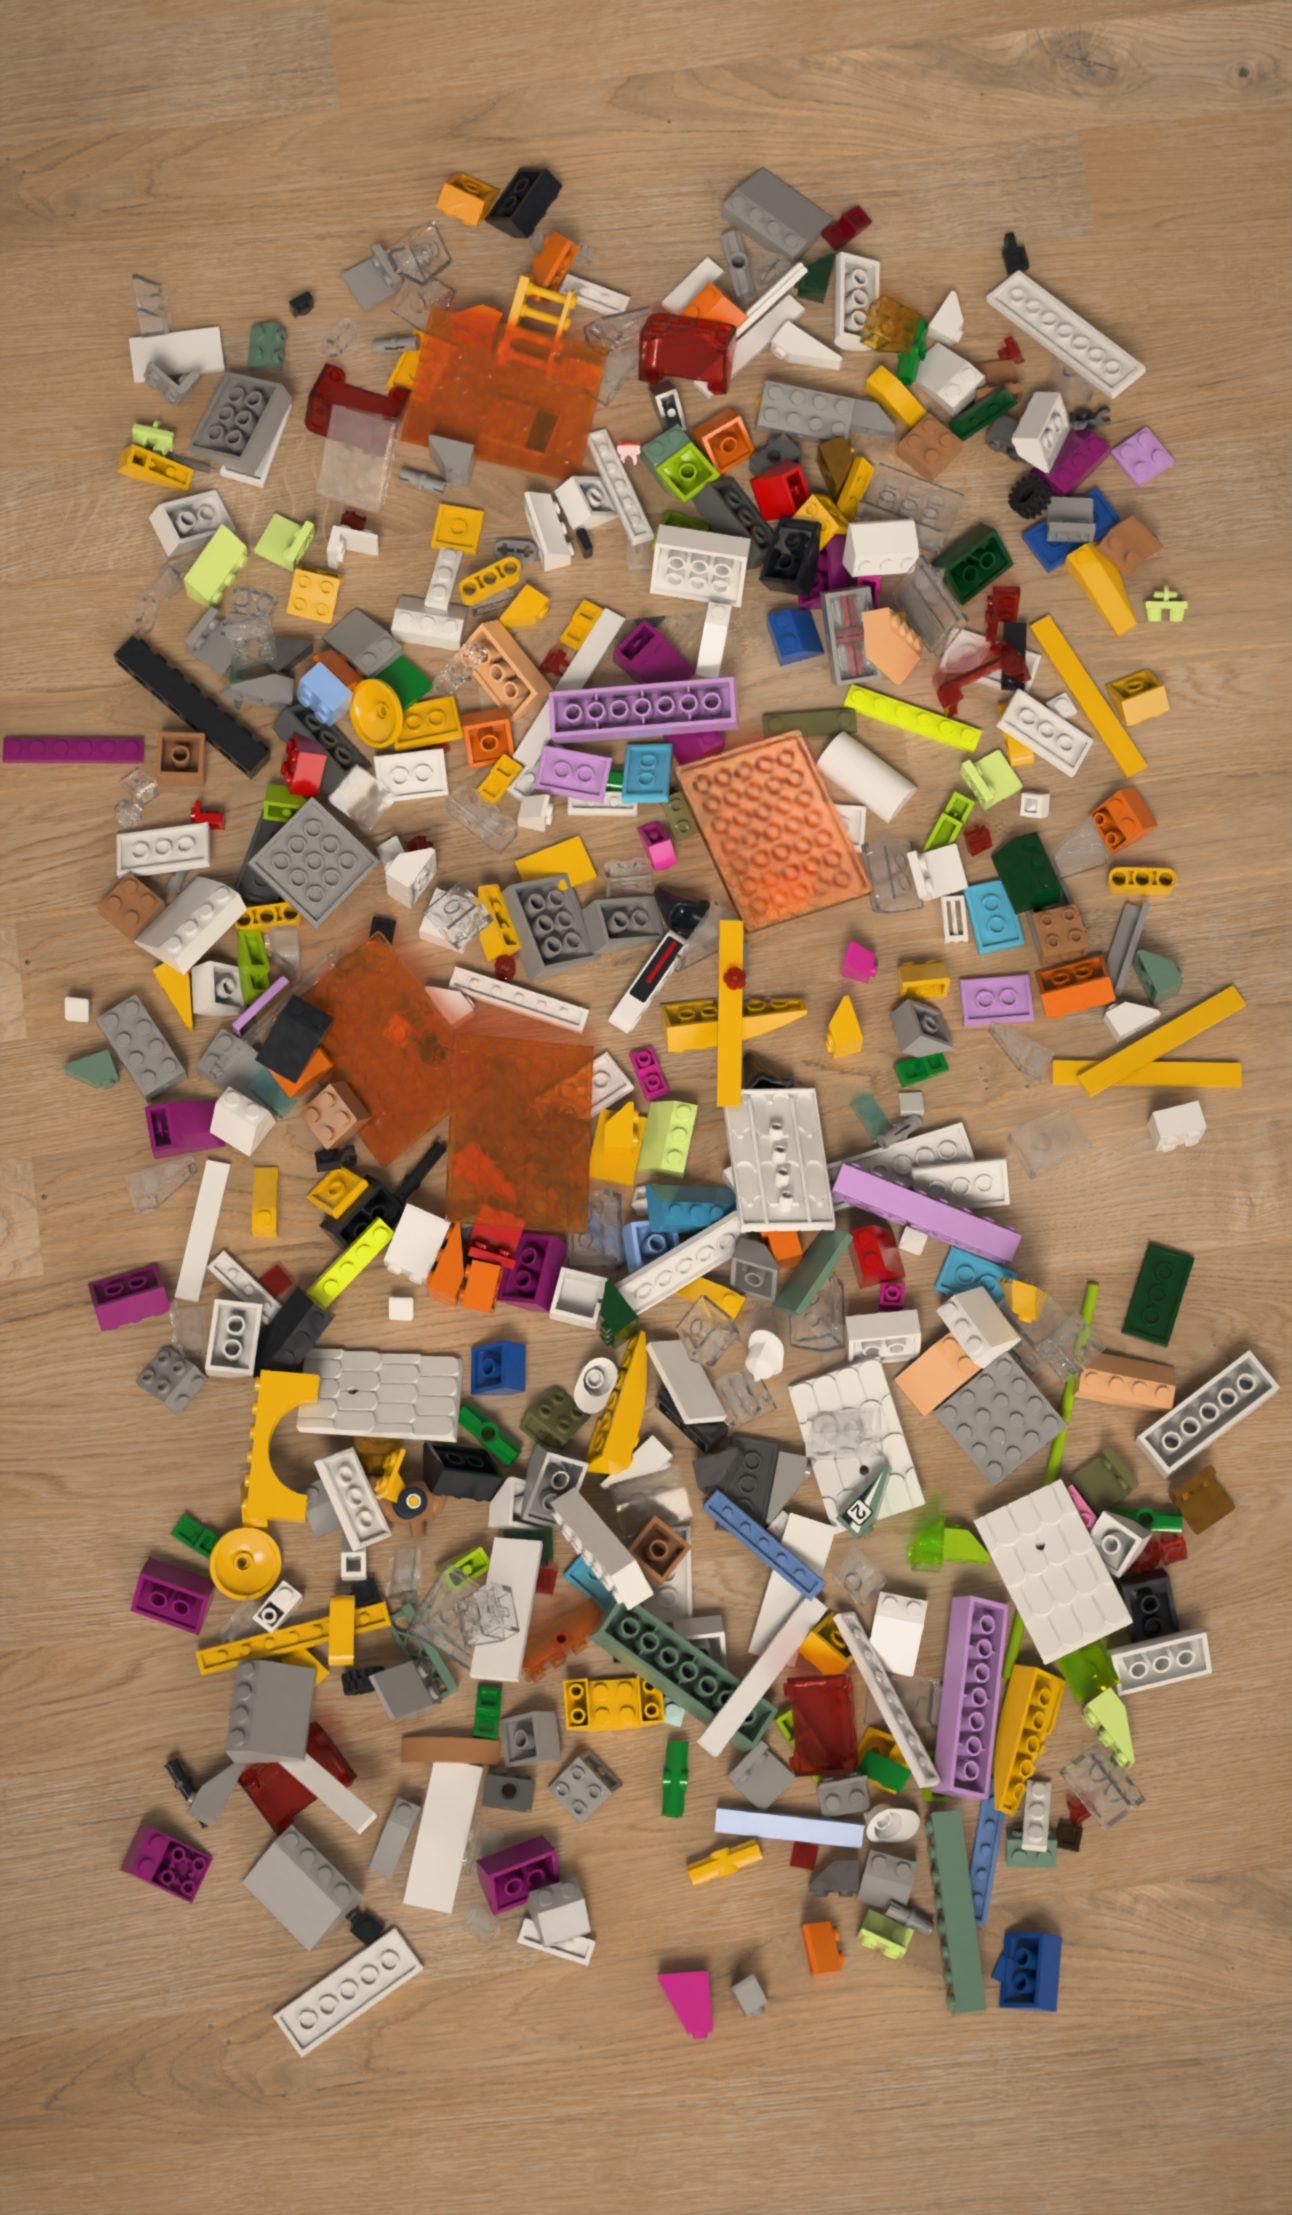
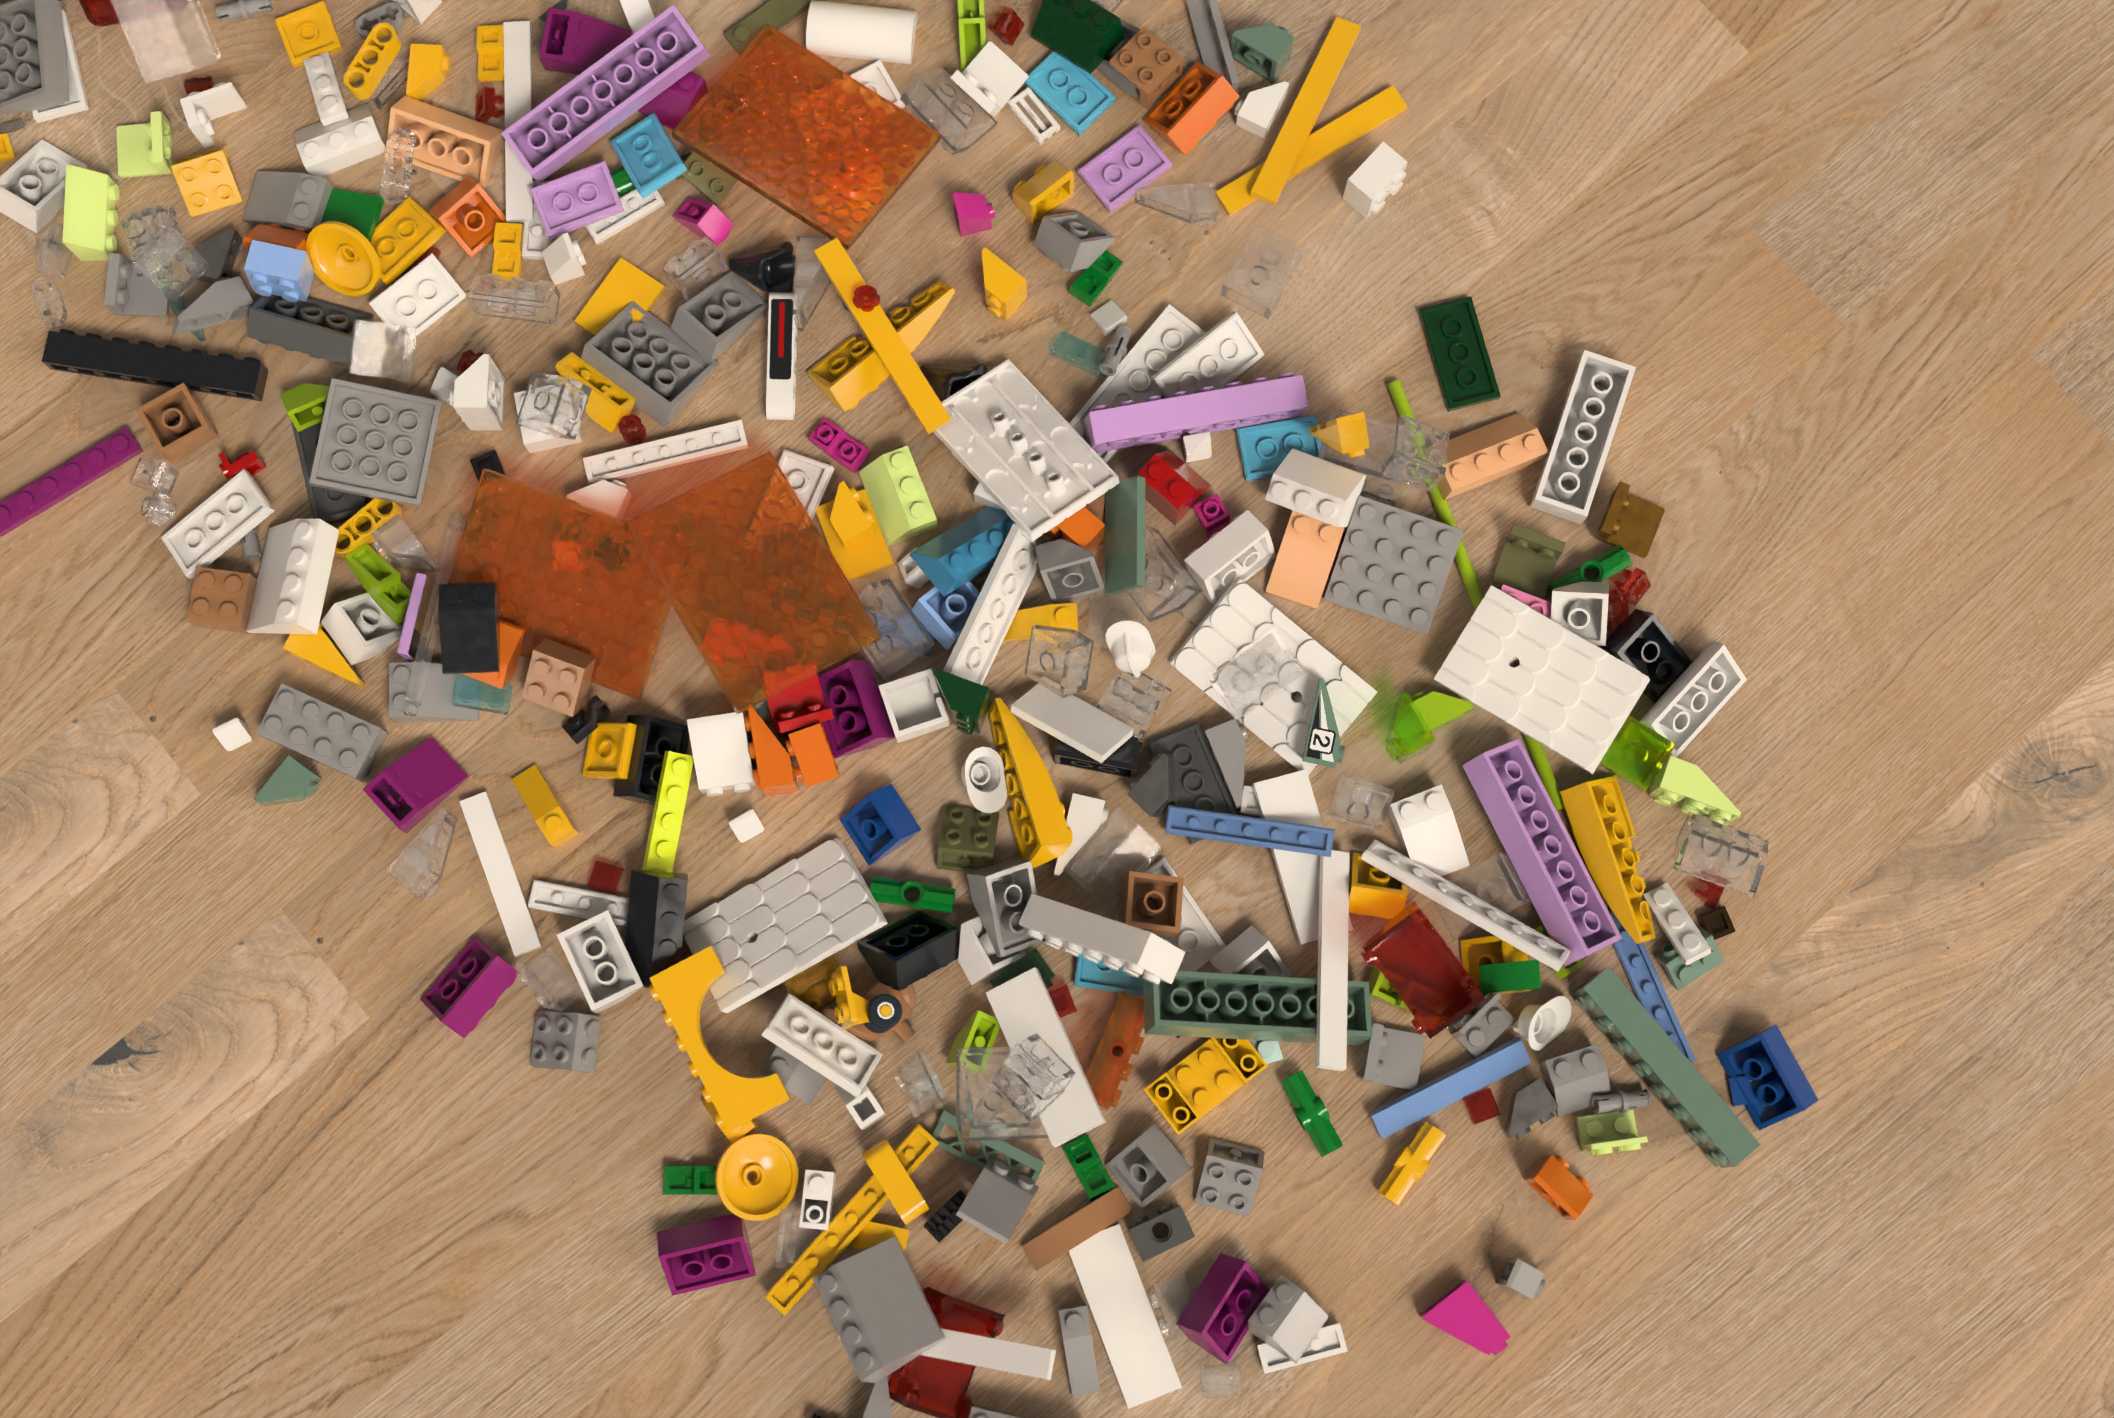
camera: 30 degrees left, 5 degrees up
(240, 1121) = (468, 743): white slope -> none
(303, 766) = (304, 354): red slope -> none
(365, 1593) = (893, 1128): black plate -> none
(413, 1180) = (677, 688): black pin -> none

